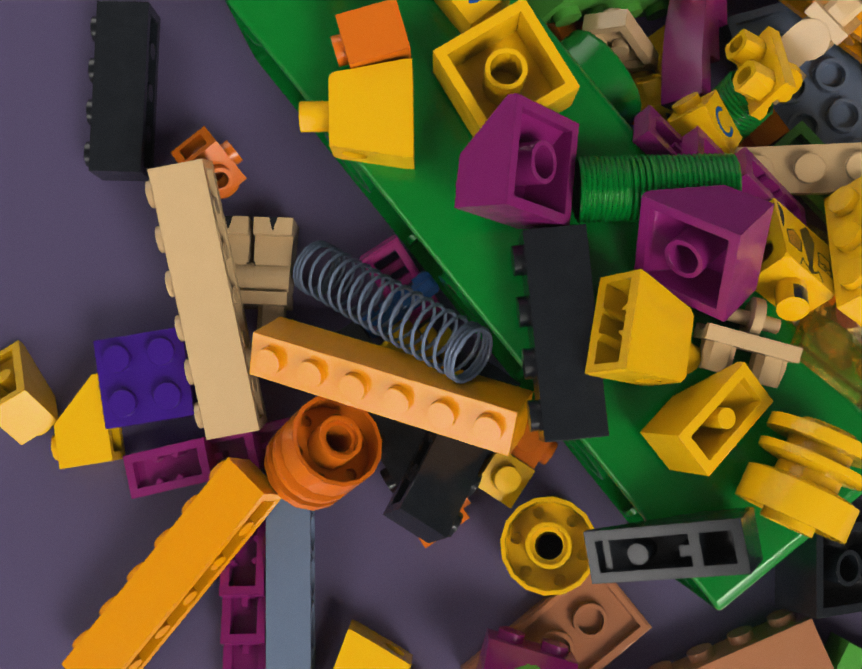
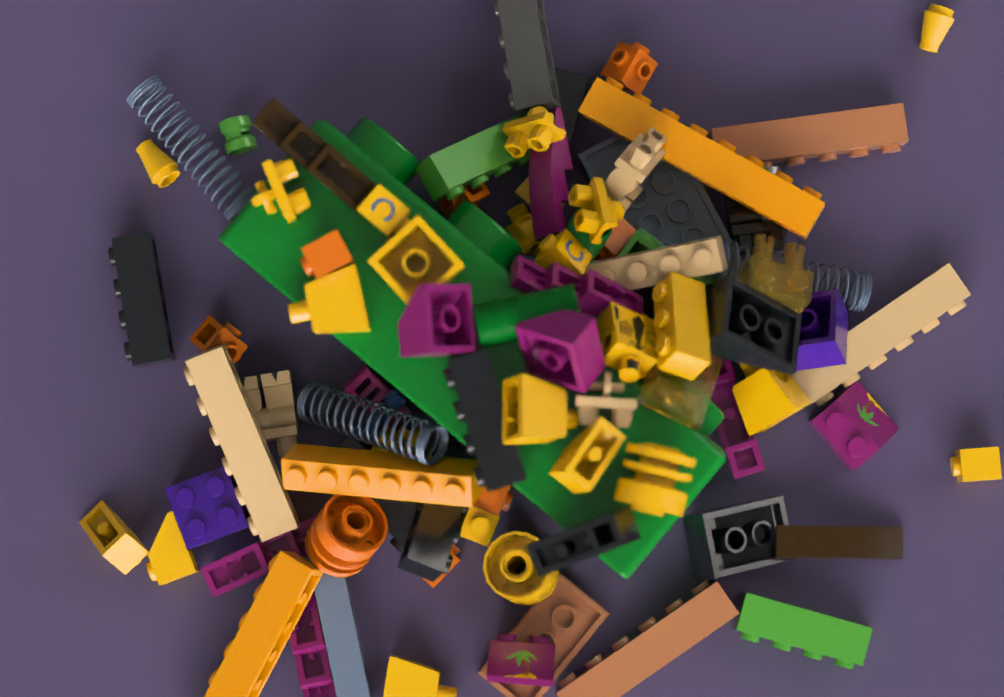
camera: 10 degrees left, 0 degrees up
(624, 37) = (498, 198): tan plate -> none

